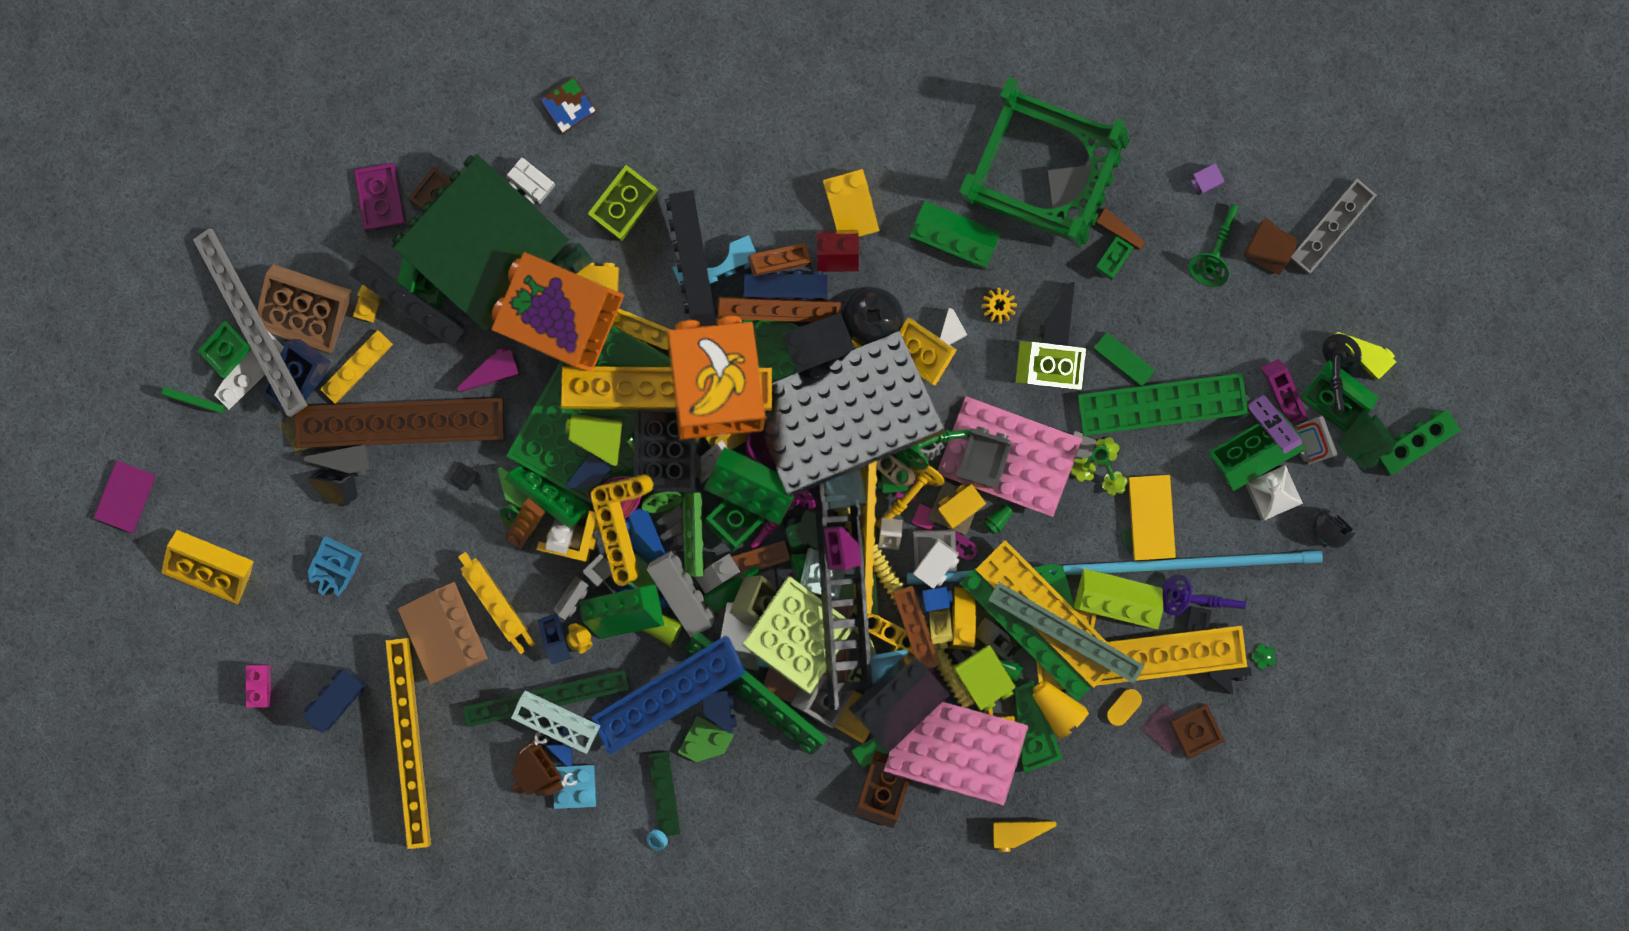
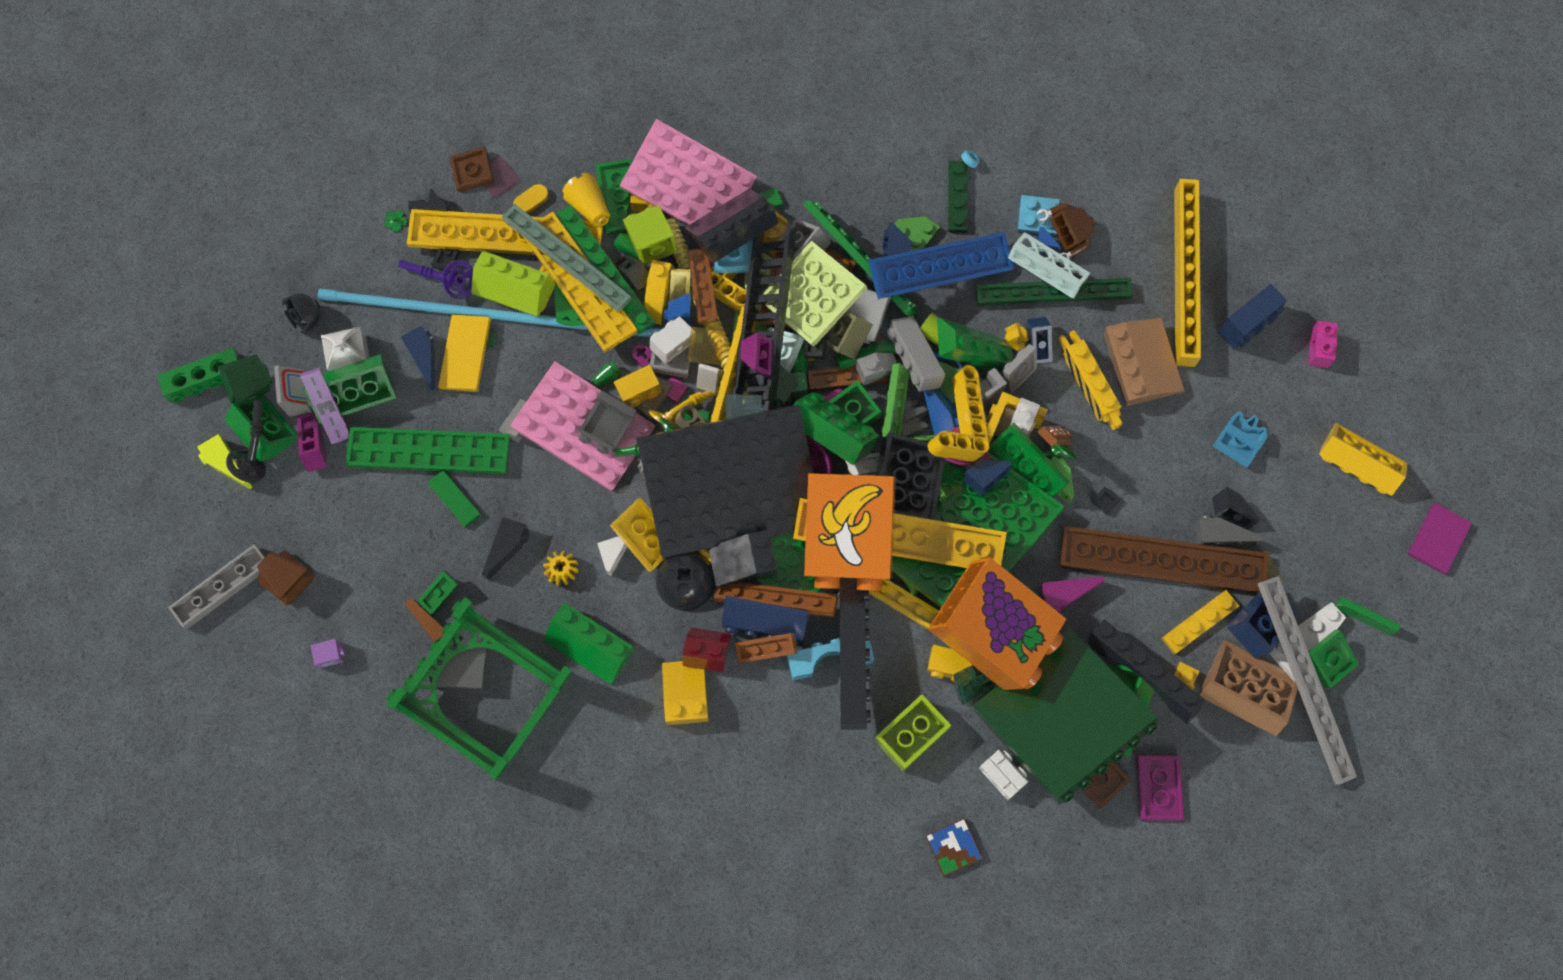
camera: 170 degrees left, 15 degrees down
(596, 435) = (975, 502): lime slope -> none
(881, 794) = (765, 160): reddish brown slope -> none
(900, 563) = (705, 345): none -> clear yellow piece
(1014, 833) = (645, 112): yellow slope -> none
(1050, 365) = (526, 503): lime slope -> none
(1104, 451) = (491, 392): lime plant -> none
(1195, 508) = (423, 352): none -> dark blue slope
(1212, 263) = (345, 571): green dish -> none

